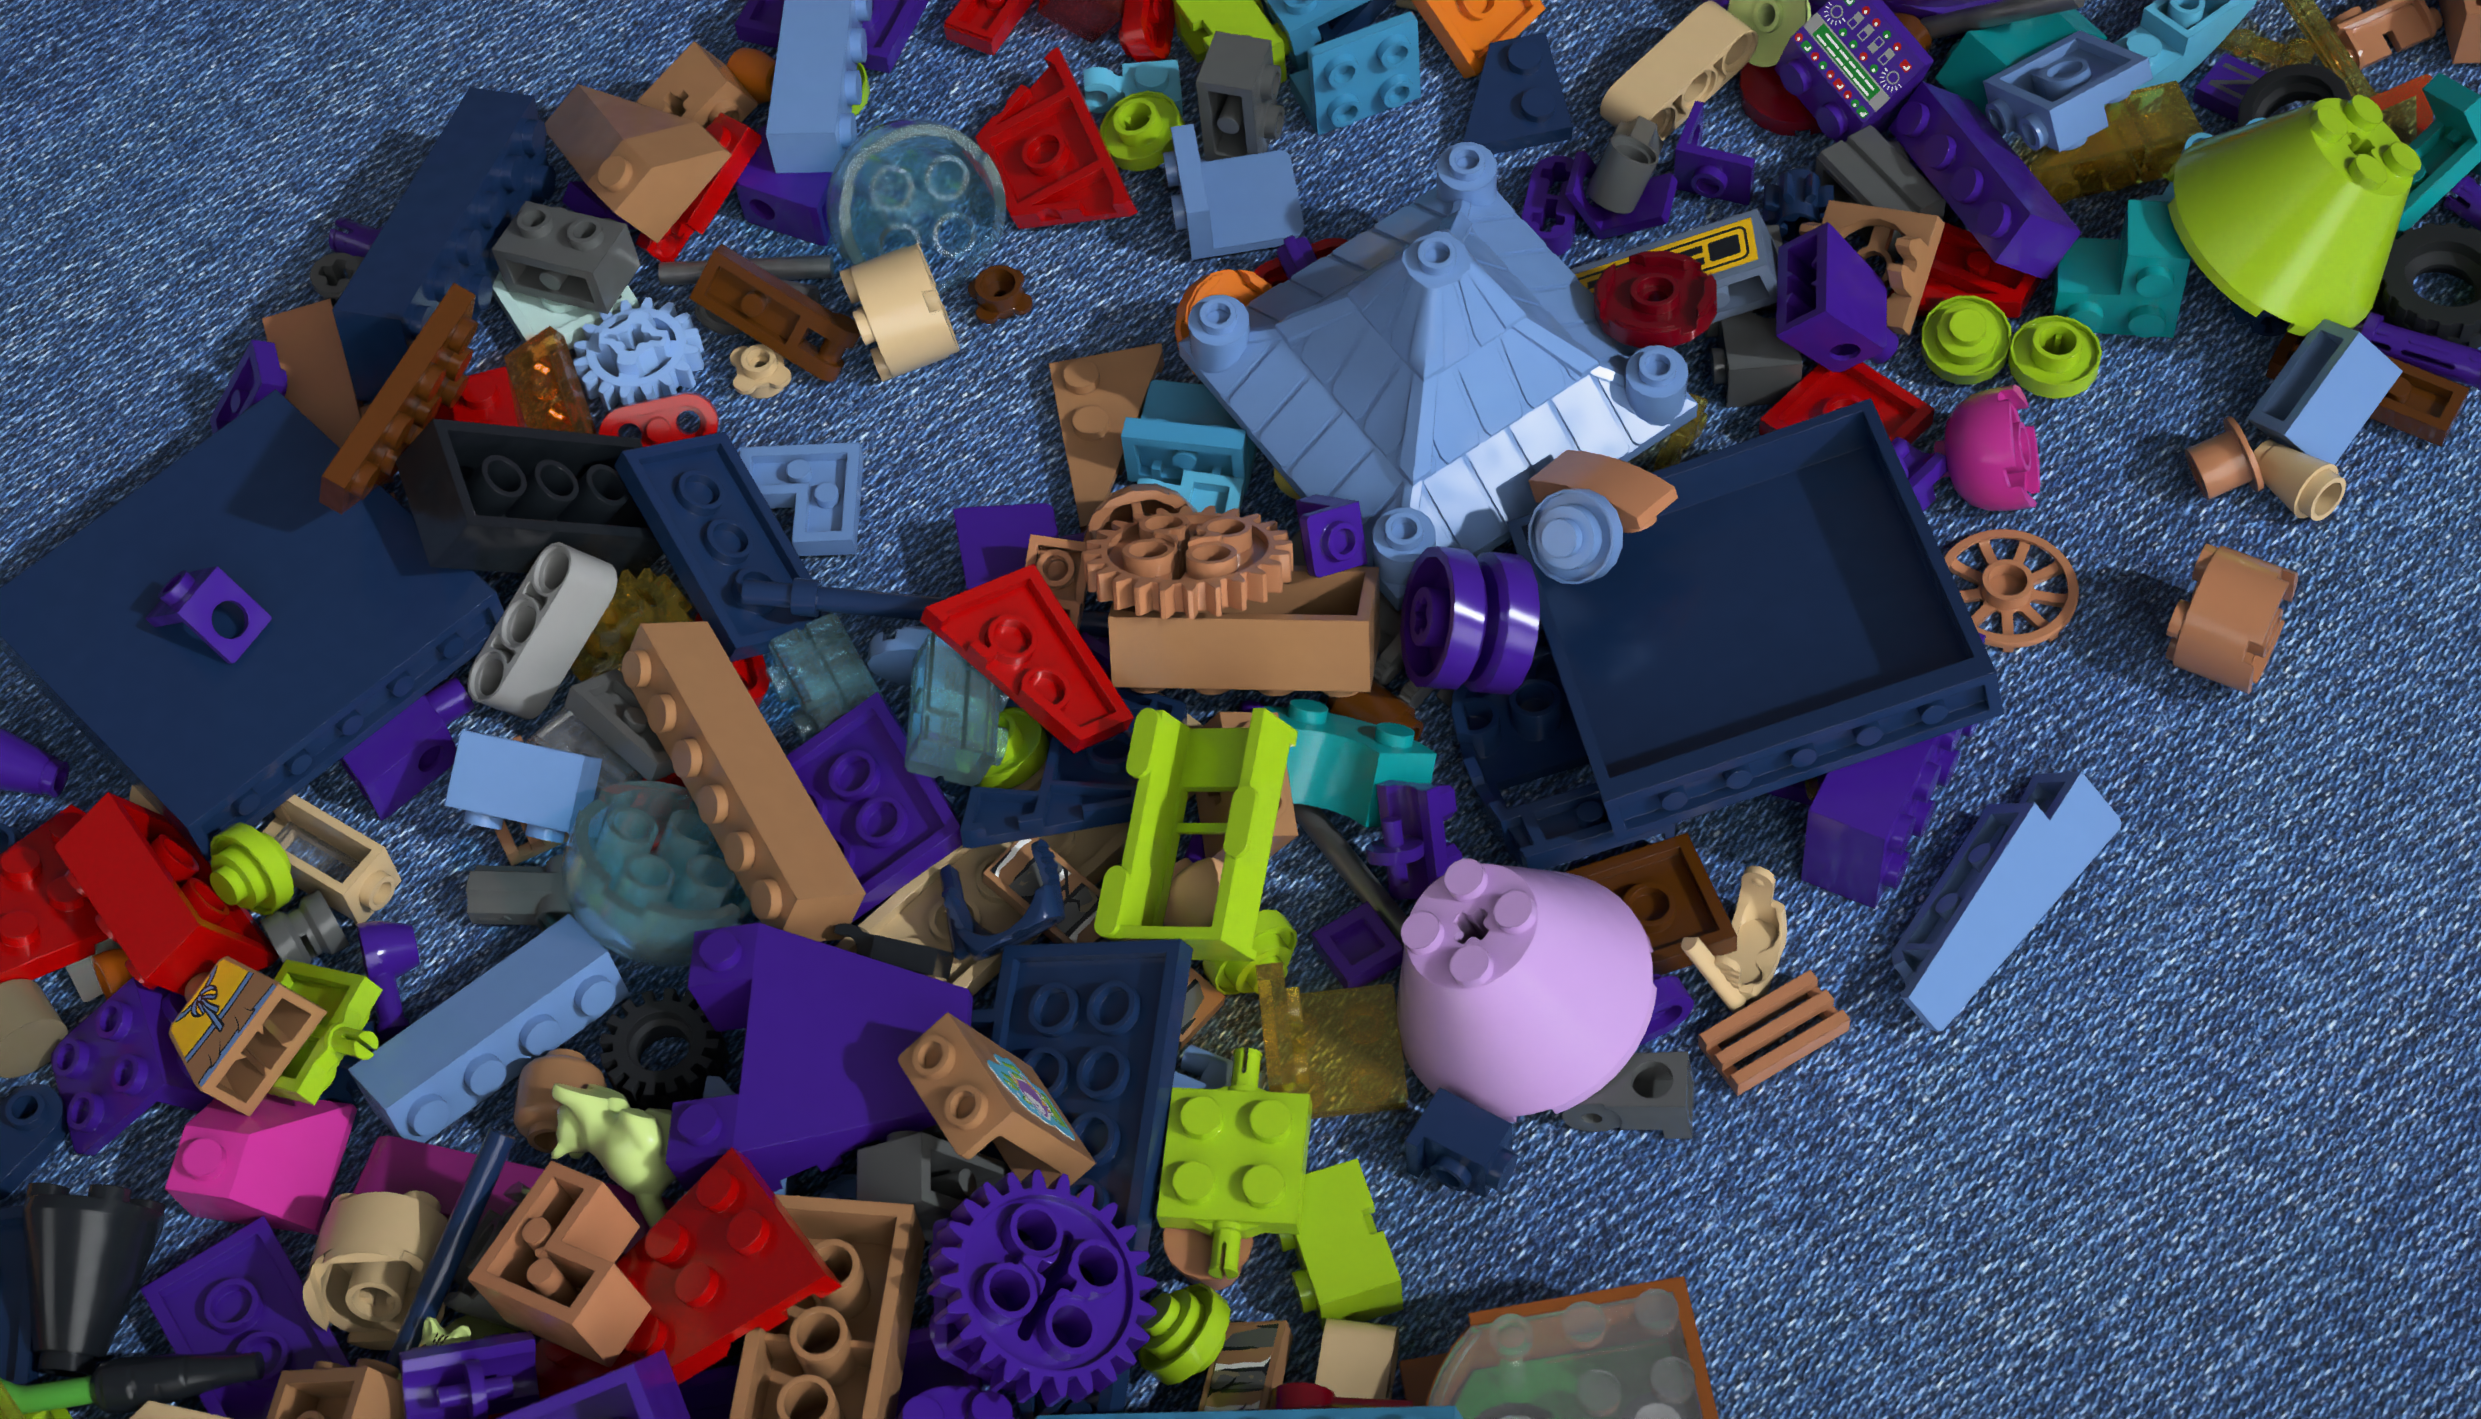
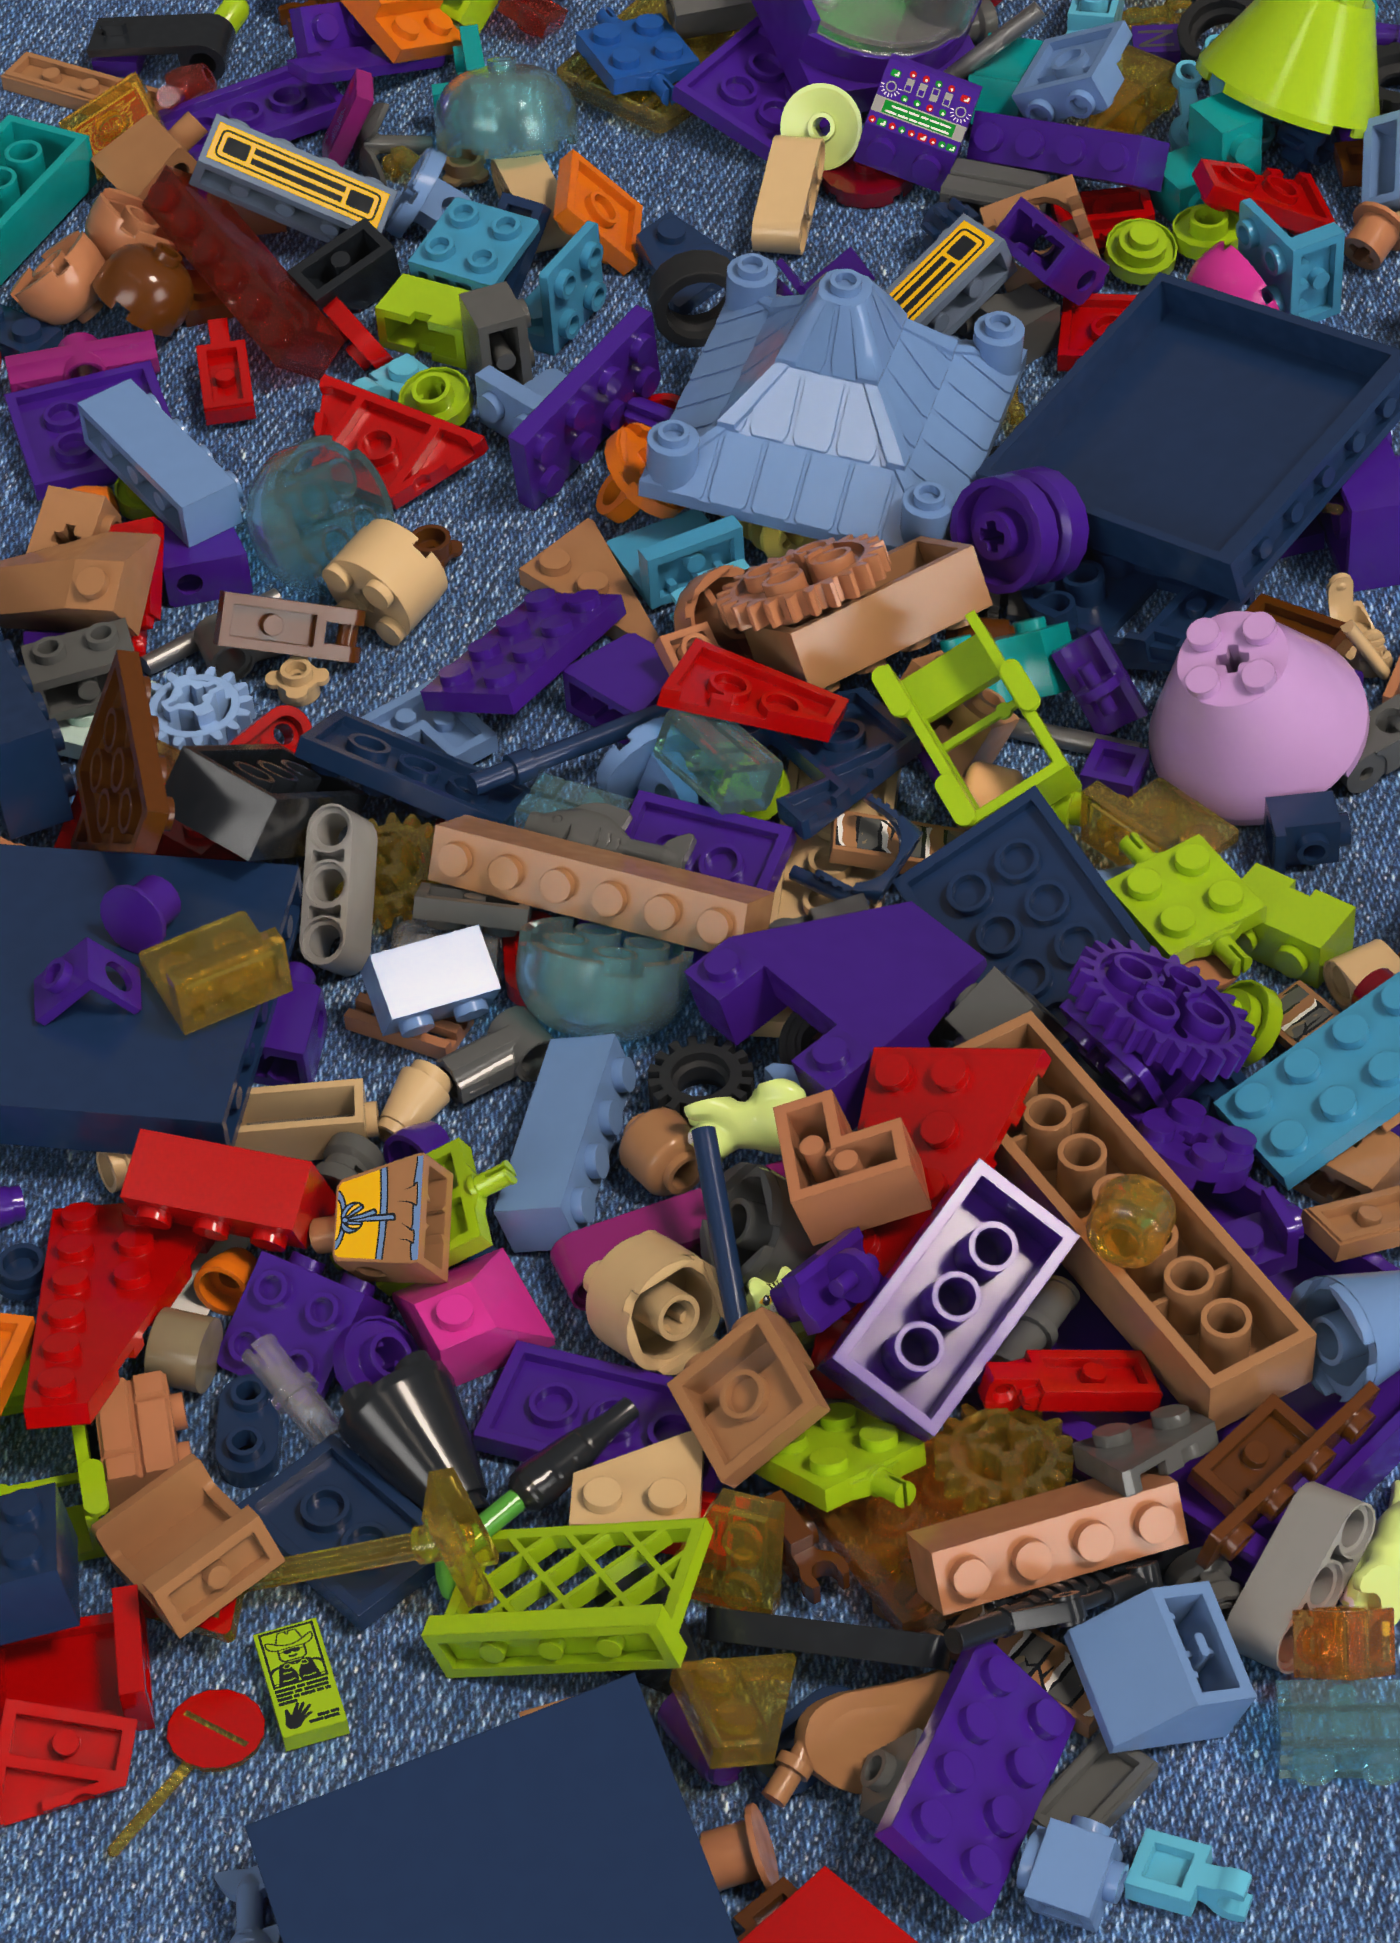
camera: 40 degrees left, 10 degrees down
(52, 1126) = (292, 1390): none -> clear pin
(136, 1149) = (370, 1350): none -> dark purple plate
(250, 869) = (279, 1129): lime plate -> none
(306, 666) = (218, 970): none -> clear yellow bracket
(308, 563) = (139, 913): none -> dark purple piece
(427, 894) = (415, 1097): none -> tan cone
(797, 716) = (605, 828): none -> dark grey animal
(945, 466) = (523, 652): none -> dark purple plate
(991, 1095) = (1018, 931): medium nougat panel -> none
(1233, 222) = (584, 408): none -> dark purple plate
(1331, 534) = (873, 517): dark purple bracket -> none
(1473, 122) = (673, 276): none -> black tyre
(1575, 536) = (1050, 436): medium blue plate -> none
(1626, 166) = (814, 251): dark grey piece -> none
(1630, 489) = (1050, 404): nougat slope -> none
(1655, 300) = (950, 294): dark red plate -> none
(1709, 170) = (871, 238): dark purple bracket -> none
(2088, 468) = (1299, 270): none -> dark azure bracket
(2149, 354) = (1289, 202): none -> red wing

